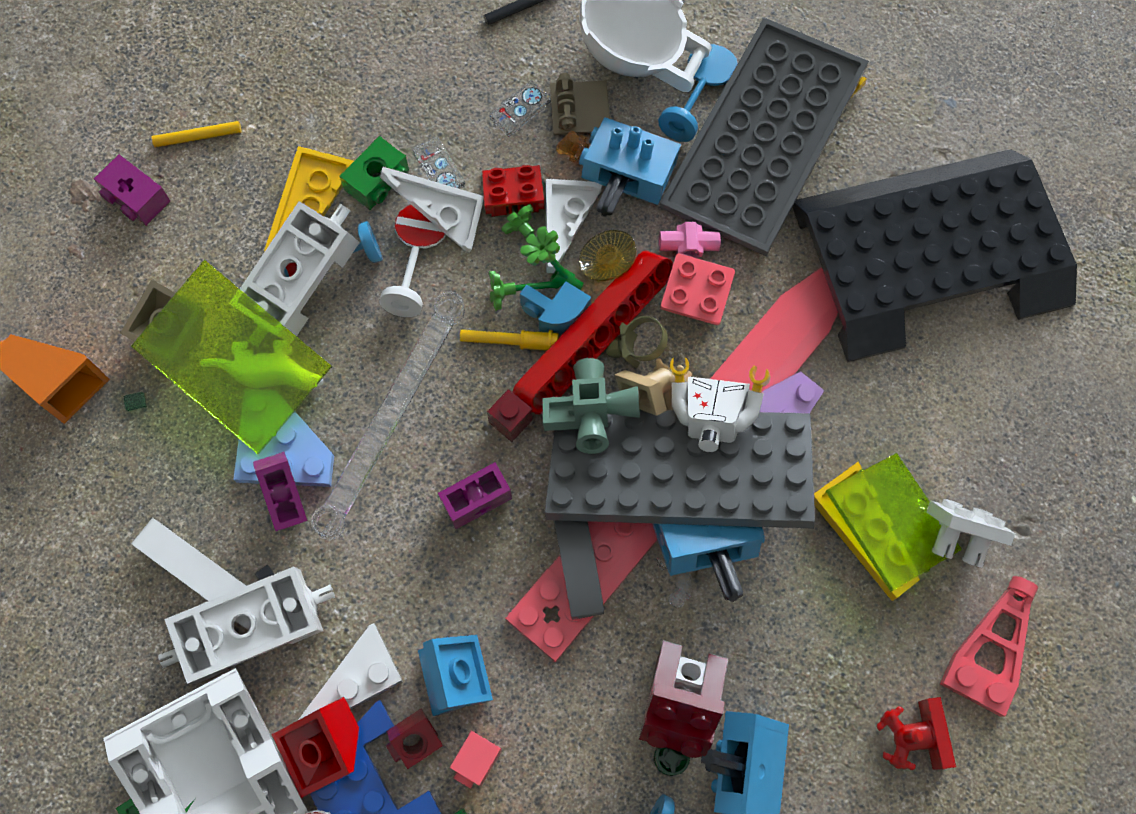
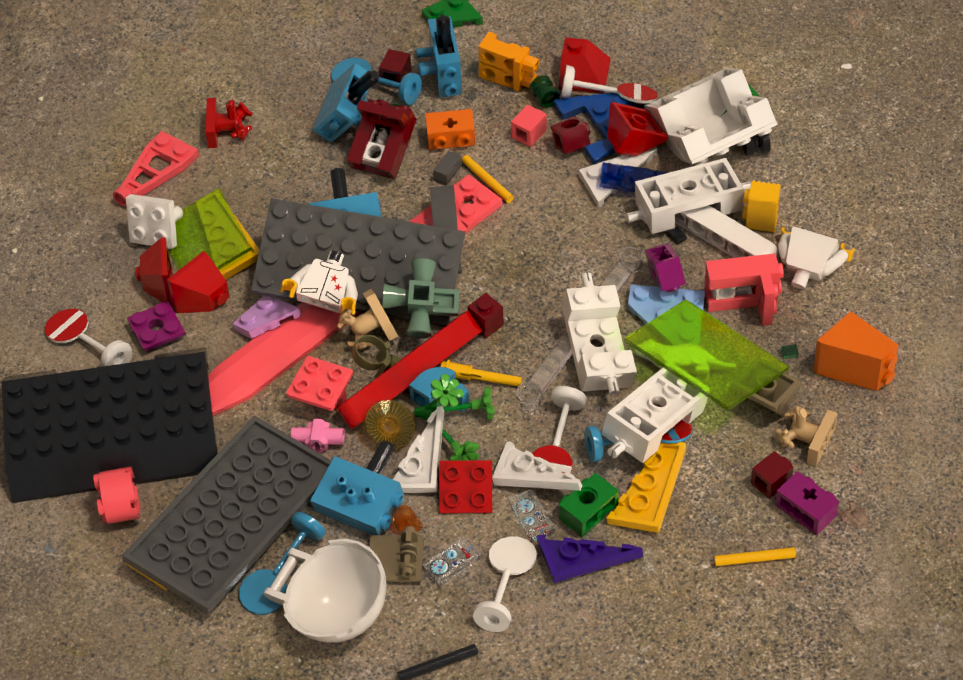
camera: 170 degrees left, 20 degrees down
(89, 536) = (810, 255): none -> white torso
(113, 273) = (812, 434): none -> tan piece
(142, 606) = (762, 206): none -> yellow brick
(167, 222) = (771, 474): none -> dark red brick
(176, 475) = (744, 284): none -> coral brick
(320, 661) = (624, 177): none -> clear blue plate
(362, 348) = (592, 315): none -> white brick
(388, 115) = (574, 557): none -> dark purple wing
(454, 673) = (540, 165): dark azure bracket -> none
(458, 117) = (509, 557): none -> white piece
(475, 495) = (517, 262): magenta brick -> none
(529, 661) = (487, 179): none -> yellow bar
(586, 673) = (447, 167): none -> dark grey piece
(608, 749) = (450, 129): none -> orange brick
(875, 428) = (198, 286): none -> red slope
(894, 136) = (117, 495): none -> coral brick
(924, 366) = (157, 316): none -> magenta piece
(935, 446) = (155, 270): none -> red slope
(1024, 376) = (72, 323): none -> piece

